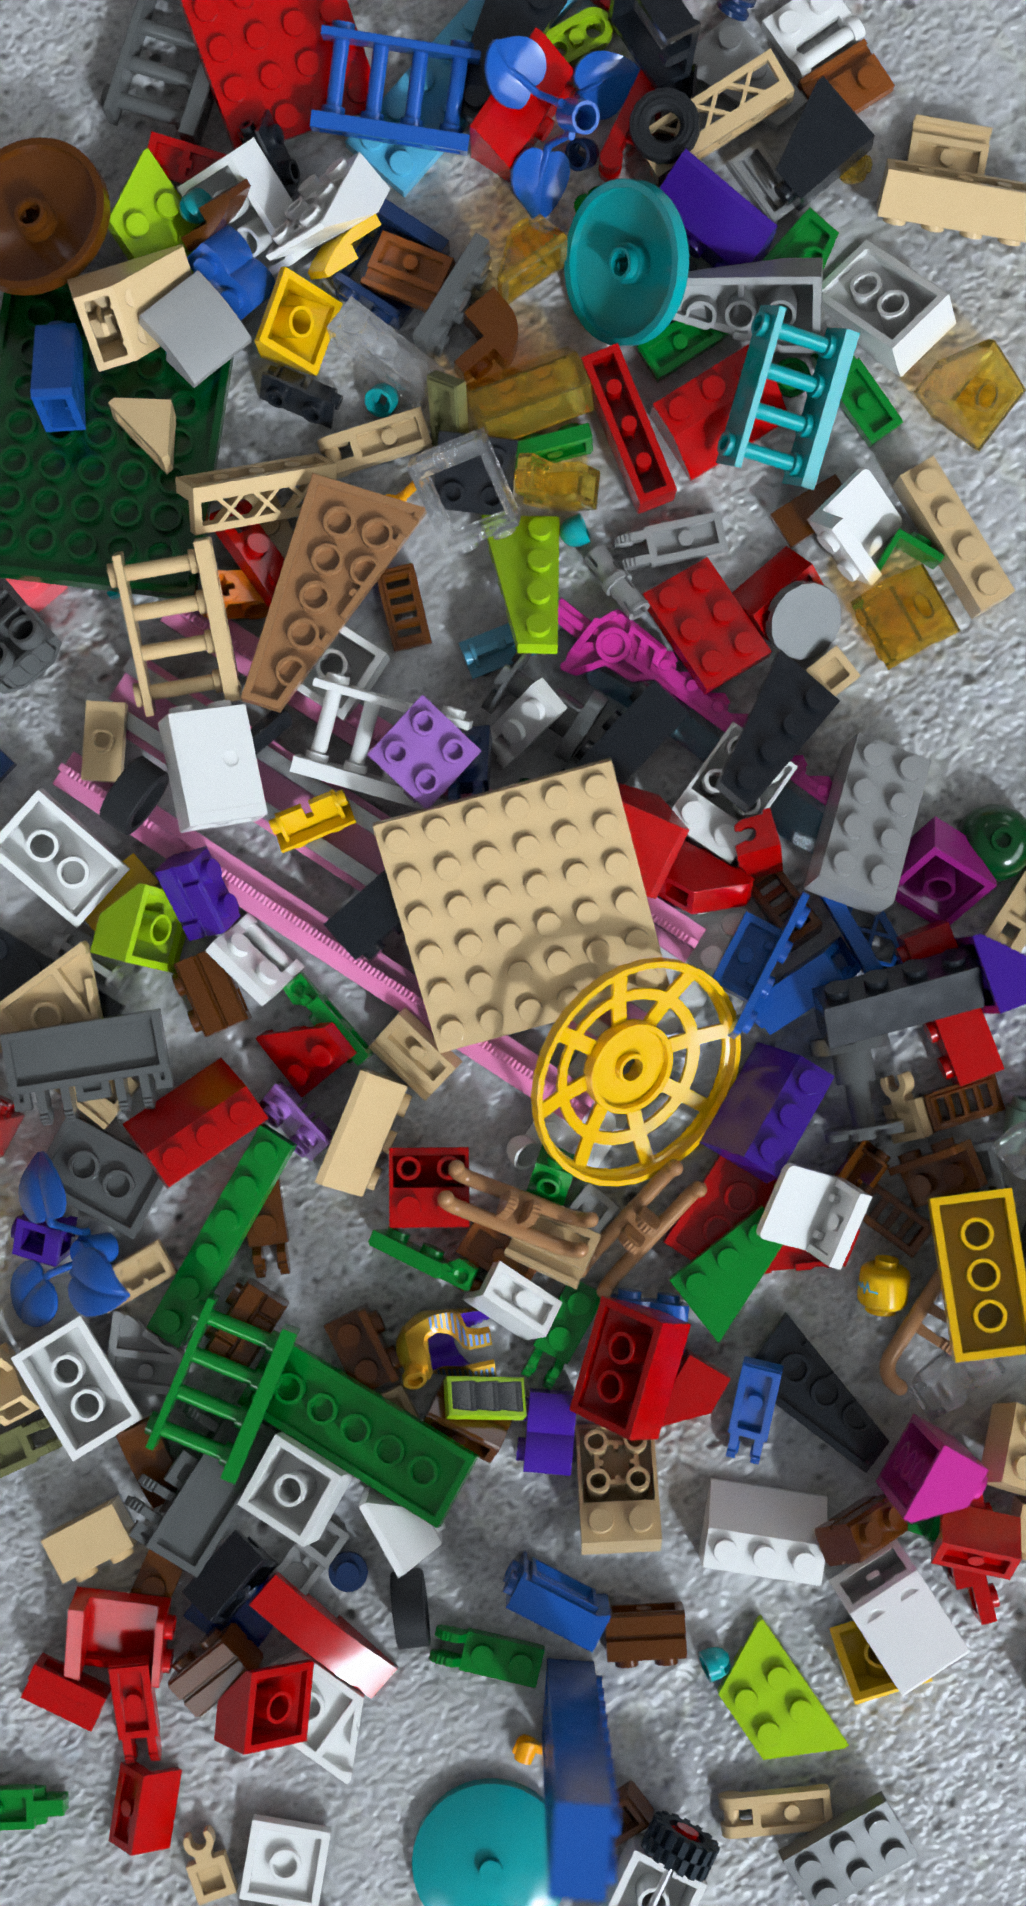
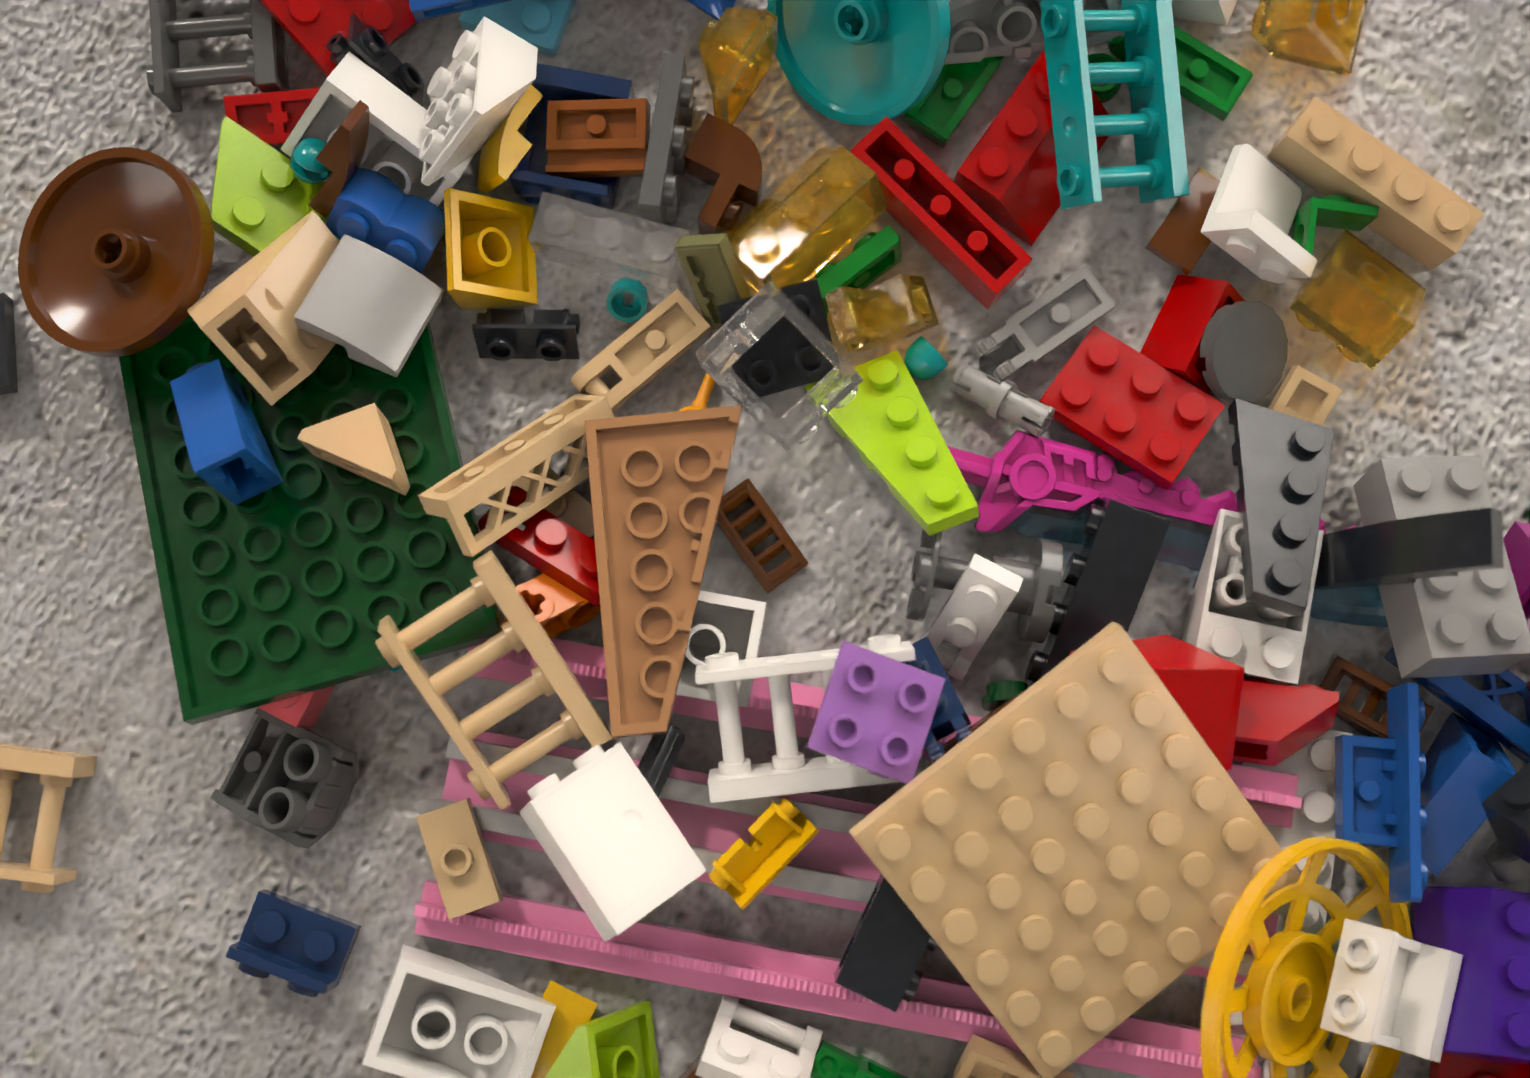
camera: 20 degrees left, 5 degrees down
(134, 795) = (525, 917): black tyre -> none
(198, 893) = (654, 1001): dark purple brick -> none
(489, 651) = (884, 542): medium azure hinge -> none
(697, 1090) = (1391, 990): none -> white panel
(764, 852) = (1328, 643): red hinge -> none
(834, 795) = (1411, 549): none -> black slope

